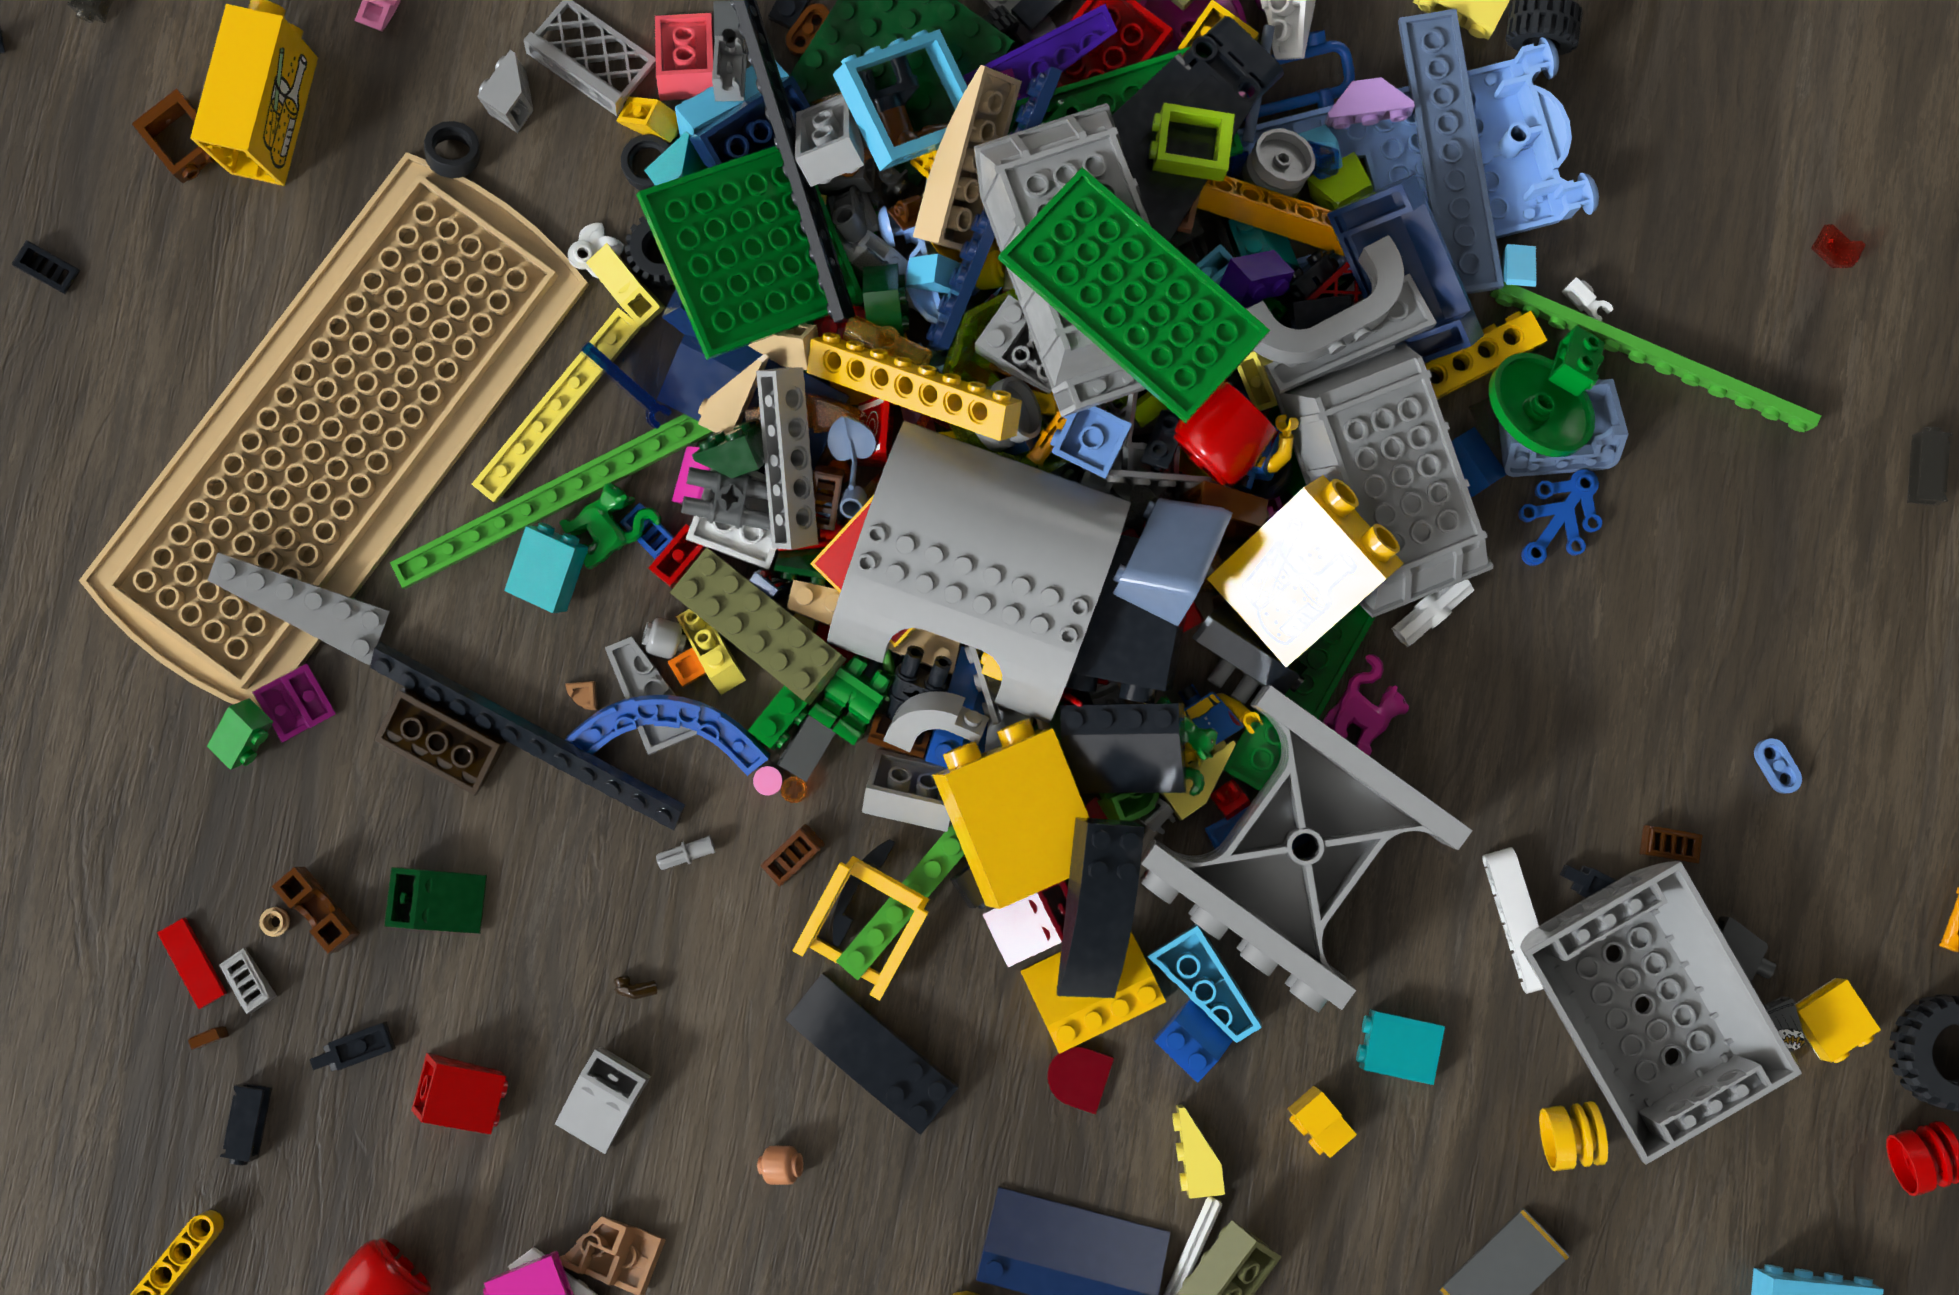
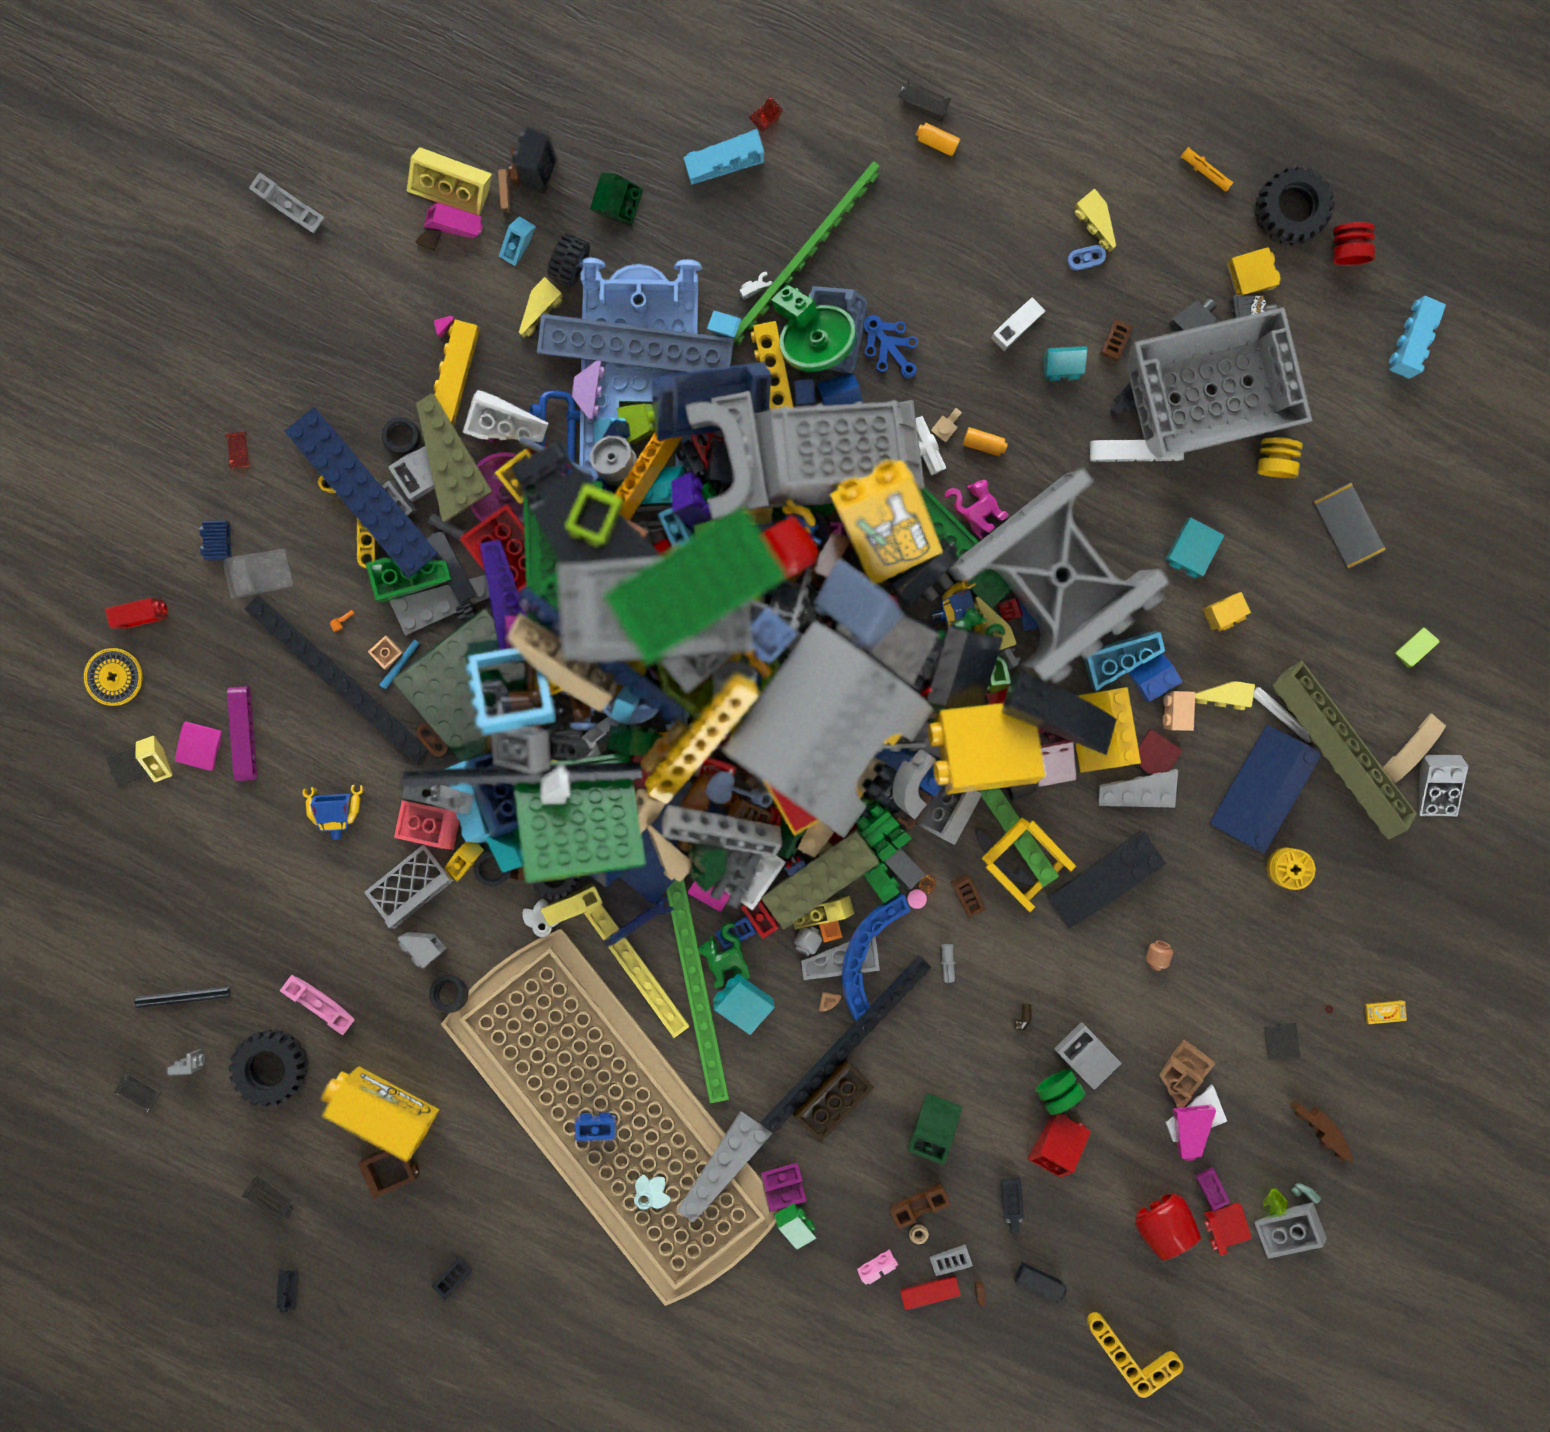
camera: 80 degrees left, 5 degrees up
(201, 865) = (870, 1271): none -> bright pink hinge
(240, 514) = (653, 1191): none -> light aqua plate
(311, 403) = (595, 1127): none -> blue brick
(537, 1071) = (1060, 1091): none -> green wheel
(784, 200) = (555, 787): none -> white slope
(1019, 1078) = (1147, 791): none -> light grey wing
(1153, 1091) = (1179, 710): none -> light nougat brick
(1459, 407) = (804, 393): none -> dark blue brick
(1463, 692) = (985, 442): none -> light orange brick
(1467, 630) = (944, 427): none -> tan plate
(1615, 775) = (1064, 363): none -> teal slope
(1649, 691) = (1017, 324): none -> white slope
(1651, 72) = (616, 198): none -> dark green slope
(1758, 205) = (725, 157): none -> medium azure wedge
(1846, 759) = (1096, 216): none -> light yellow slope
(1881, 501) = (937, 139): none -> light orange brick

